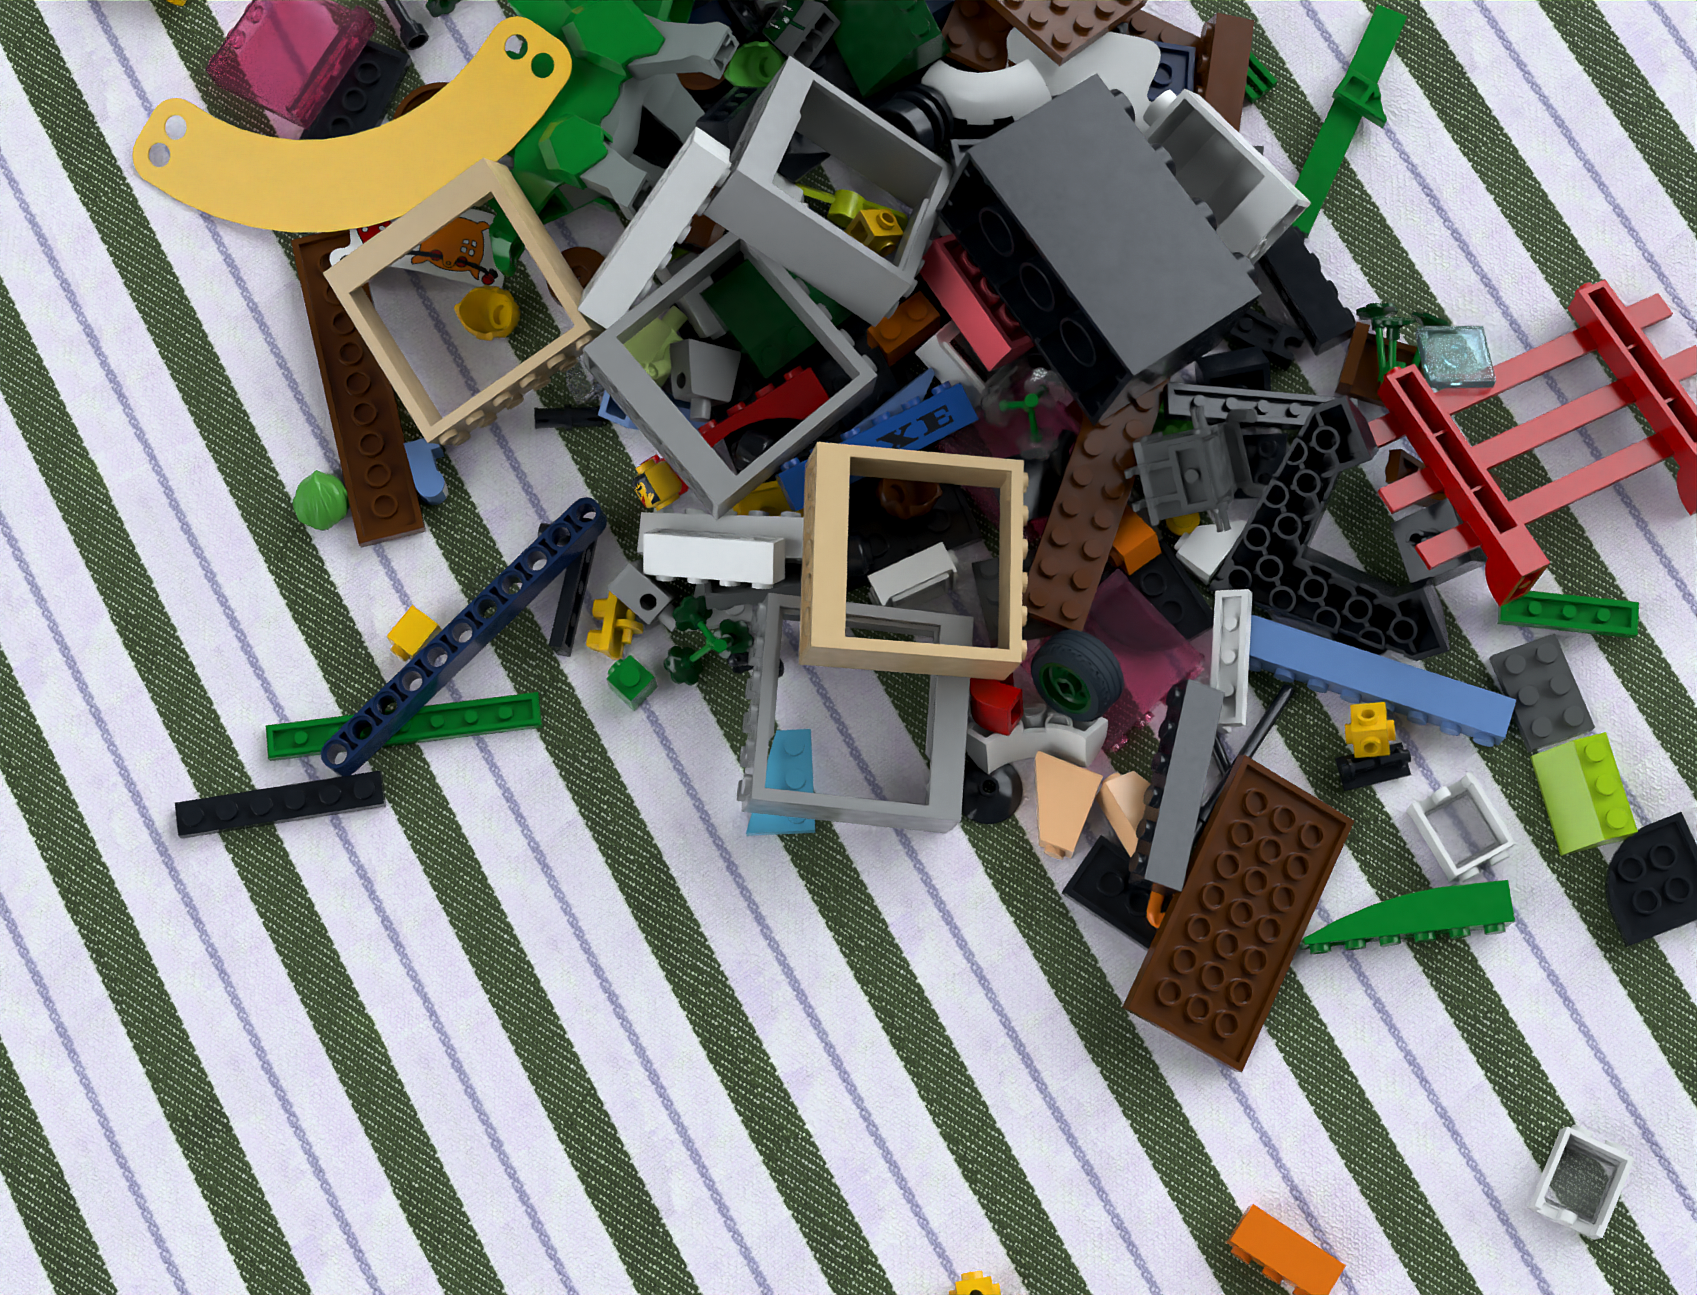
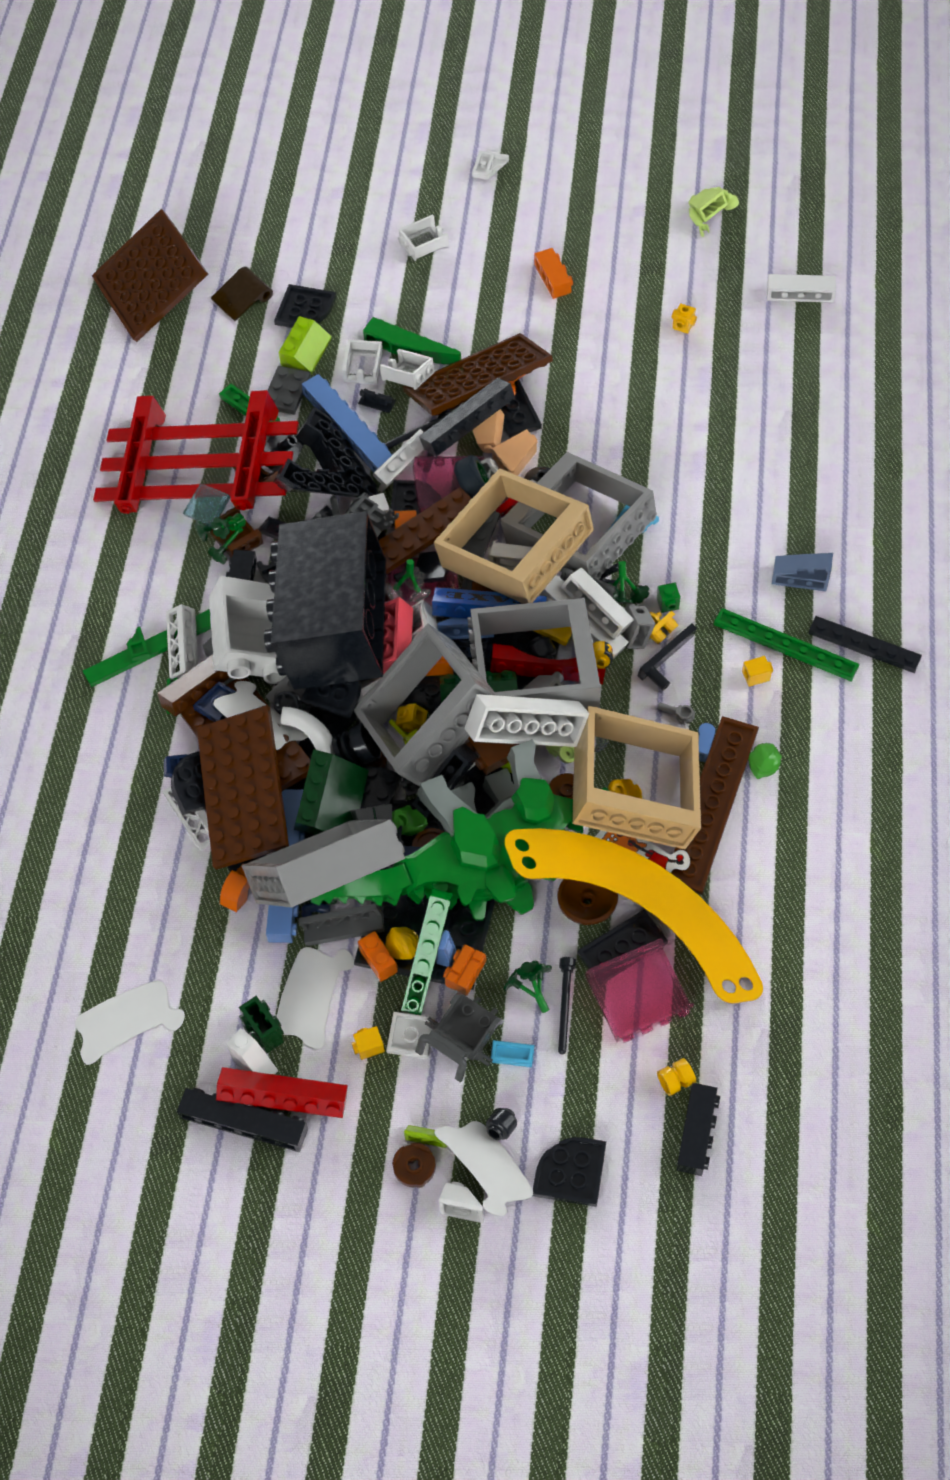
camera: 145 degrees left, 15 degrees down
(448, 867) = (803, 571): none -> sand blue wedge
(459, 653) = (726, 654): dark blue beam -> none
(485, 502) = (684, 713): none -> light grey plate
(1298, 141) = (185, 640): none -> white fence
(1363, 848) = (410, 370): none -> white window
(1370, 730) = (367, 411): yellow brick -> none

